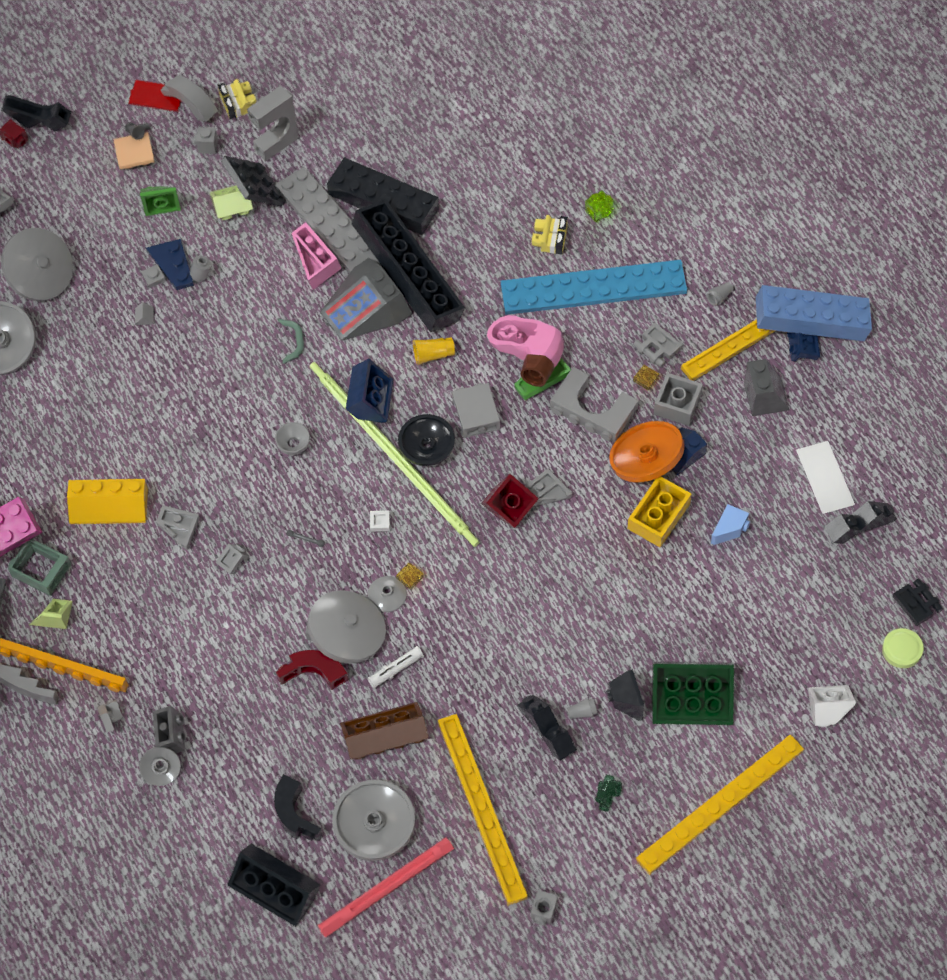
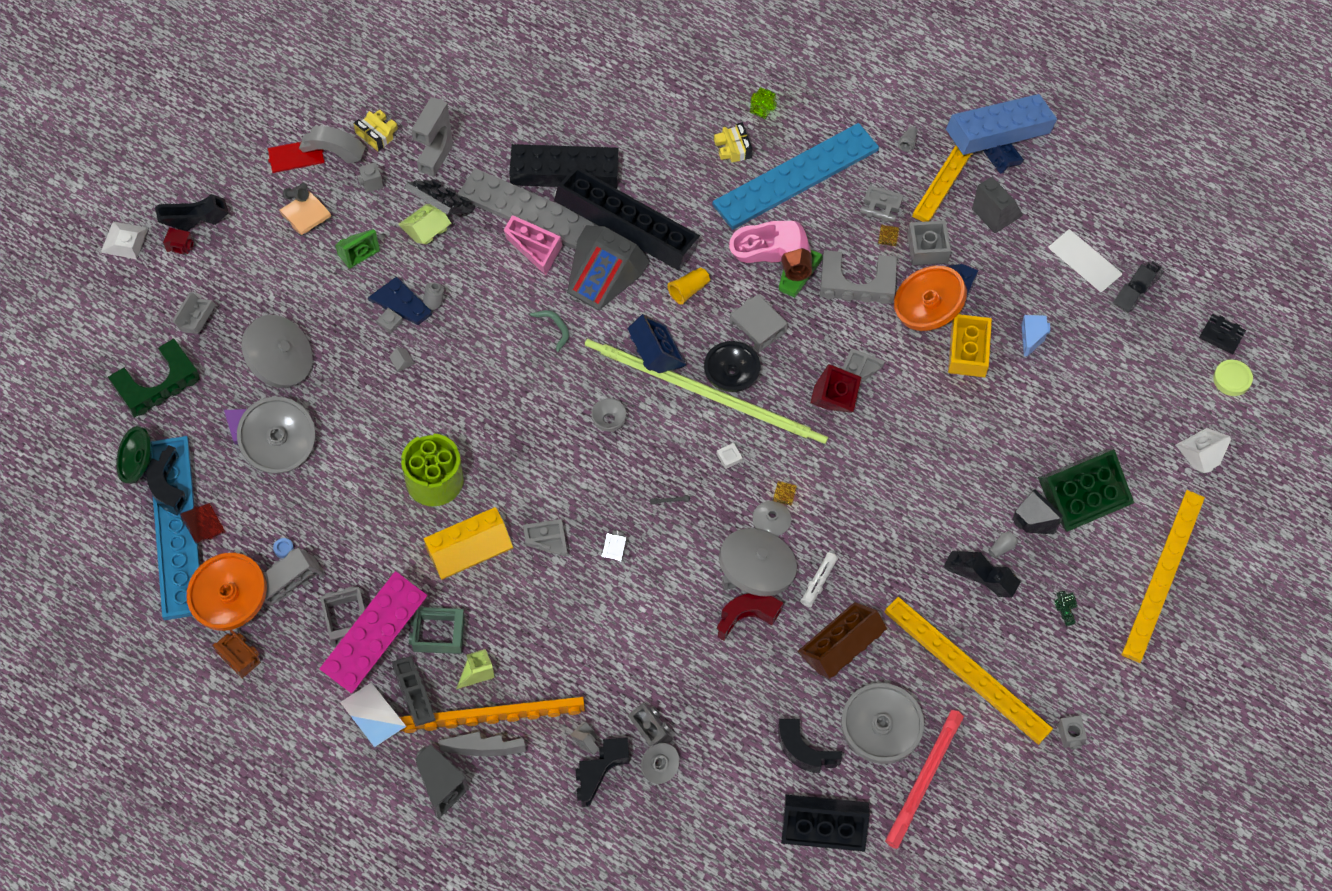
camera: 30 degrees left, 0 degrees up
(98, 749) = (592, 772): none -> black arch
(109, 423) = (432, 470): none -> lime brick

